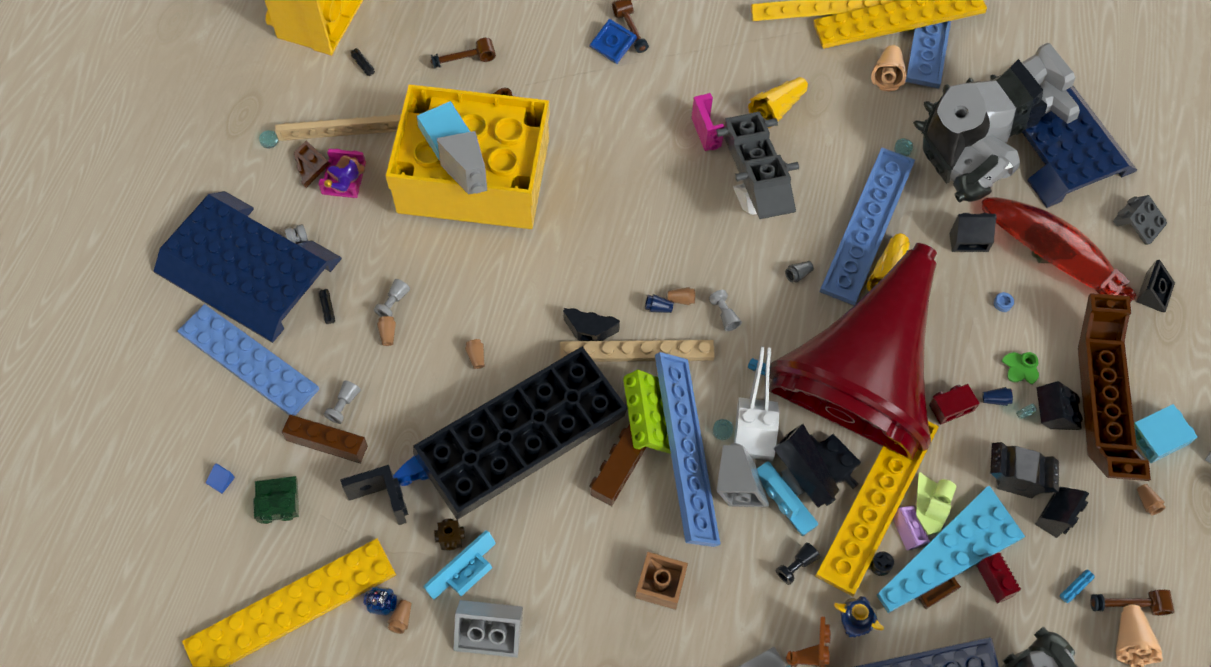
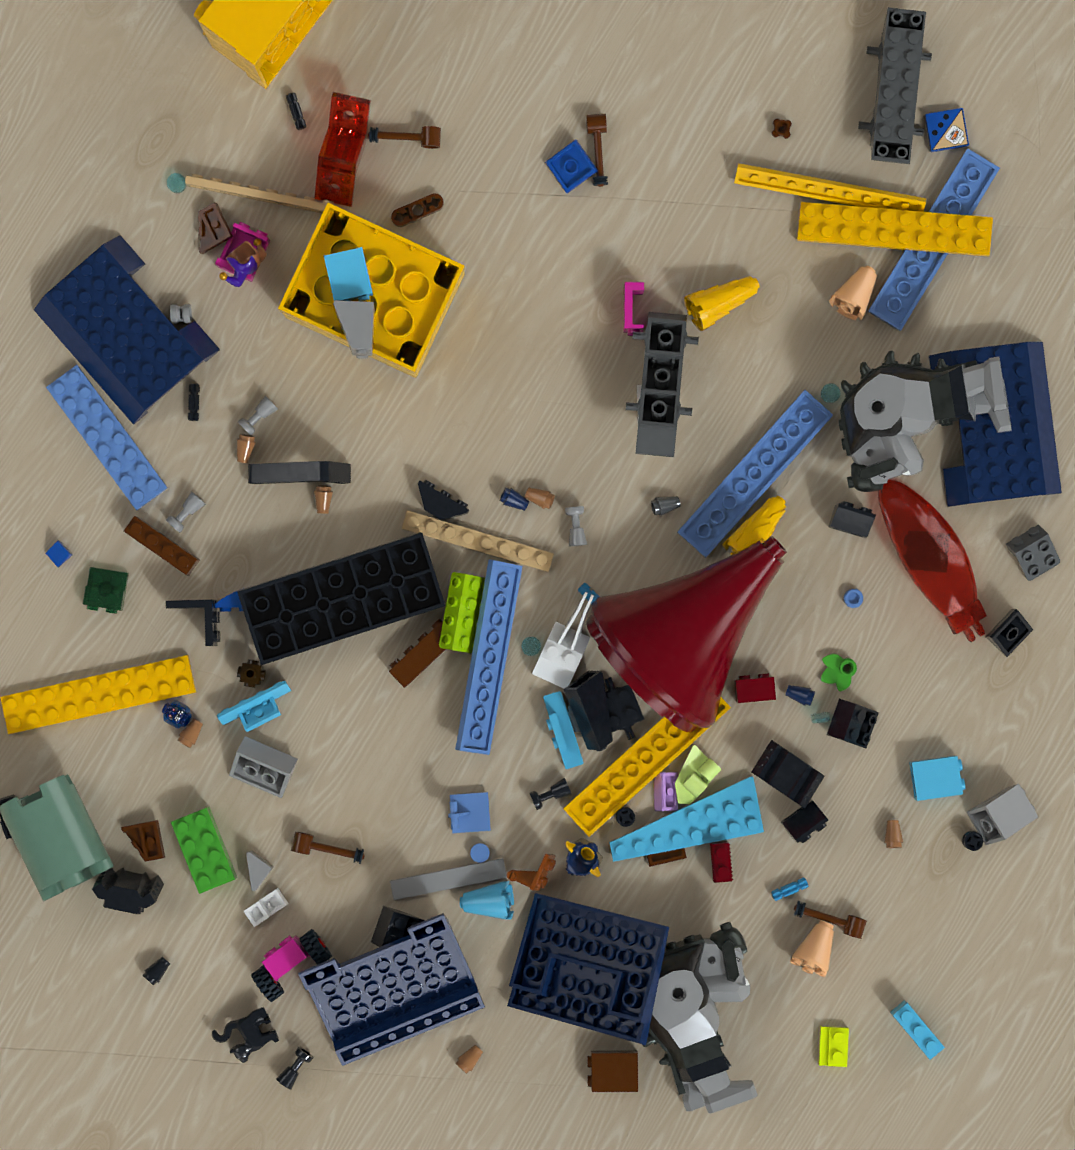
camera: 20 degrees right, 25 degrees up
(410, 61) = (342, 149): none -> clear red bracket
(444, 328) = (299, 472): none -> black beam
(661, 580) = (424, 774): medium nougat slope -> none
(722, 609) = (469, 812): none -> medium blue plate
(739, 478) = (526, 703): light grey slope -> none
(747, 649) = (479, 852): none -> medium blue tile
(1107, 389) = (900, 729): reddish brown slope -> none

